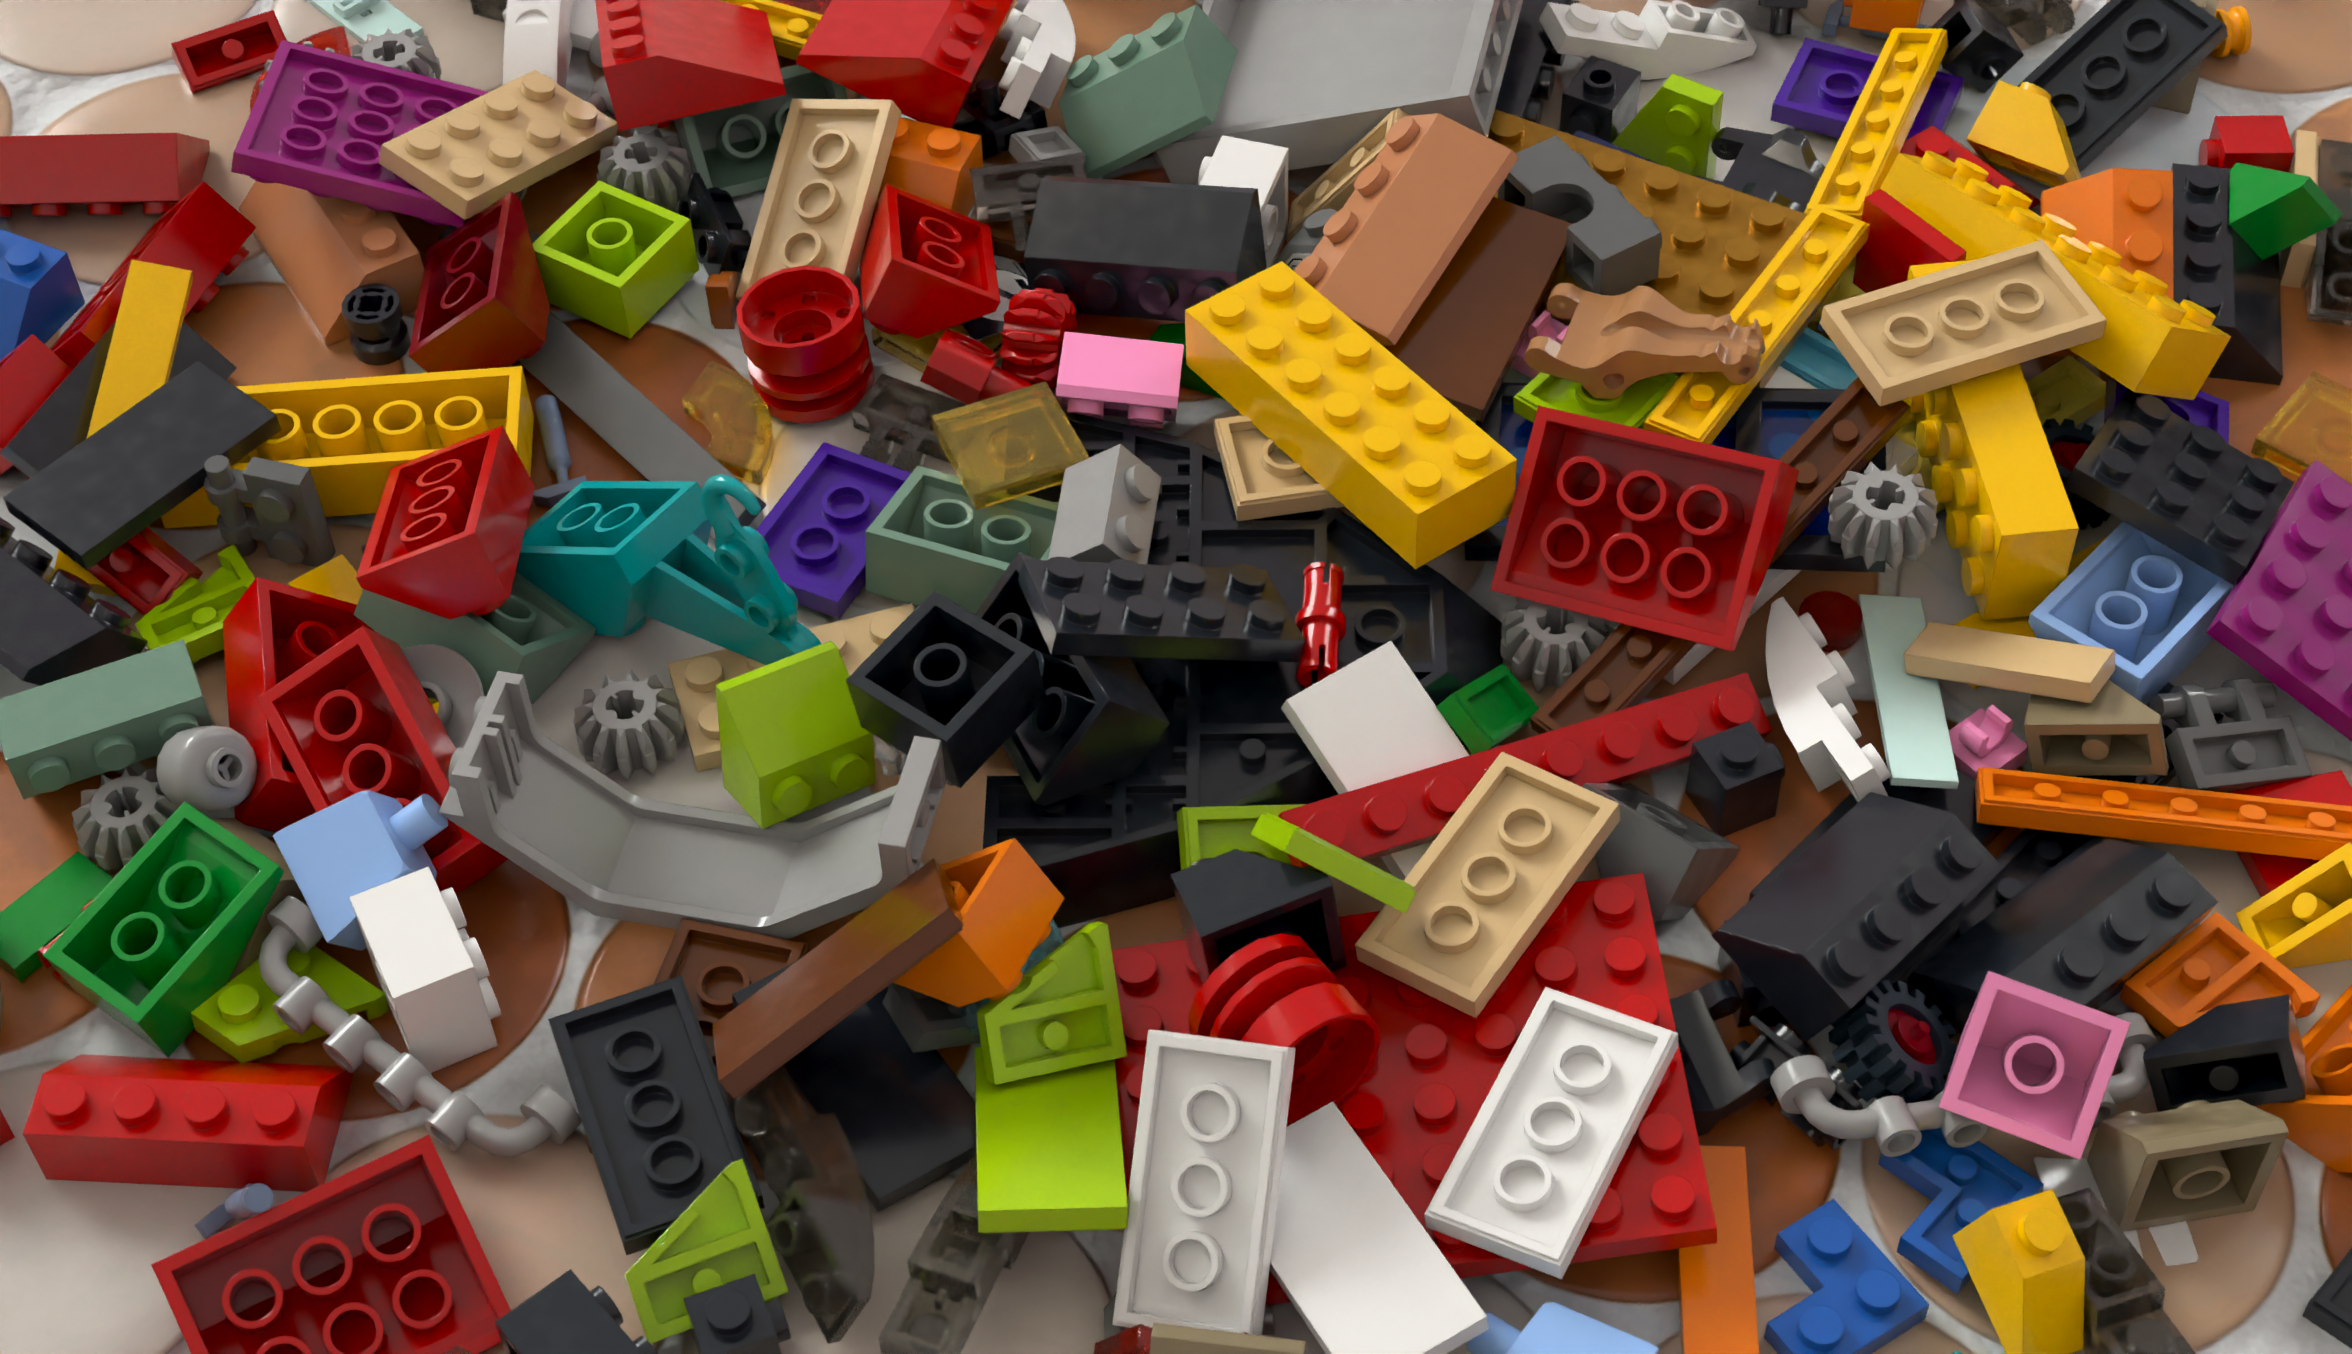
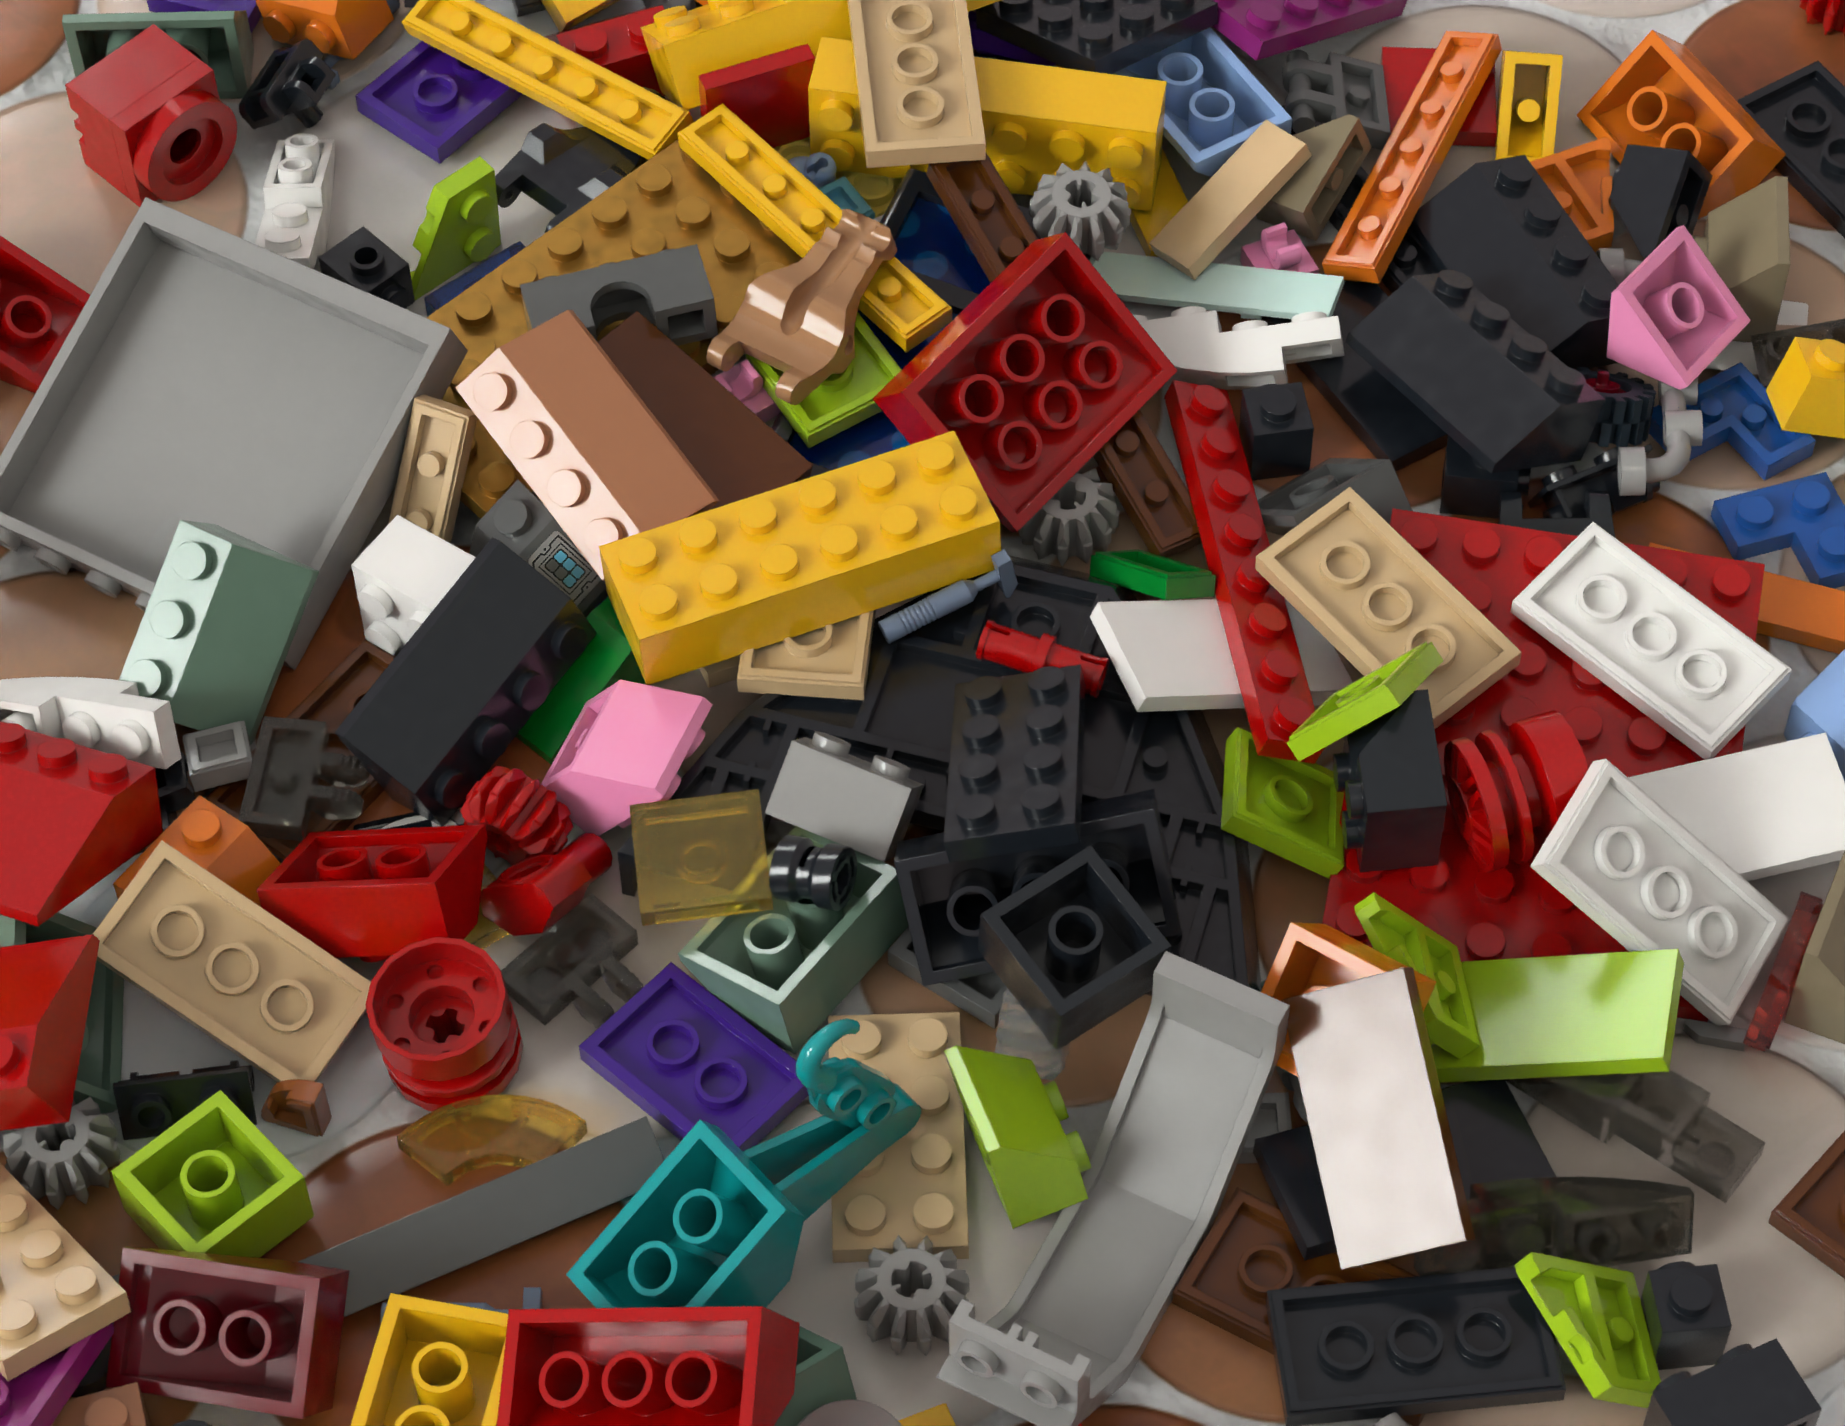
camera: 75 degrees left, 5 degrees up
(1002, 510) = (813, 872): none -> black wheel
(1366, 543) = (949, 599): none -> sand blue piece

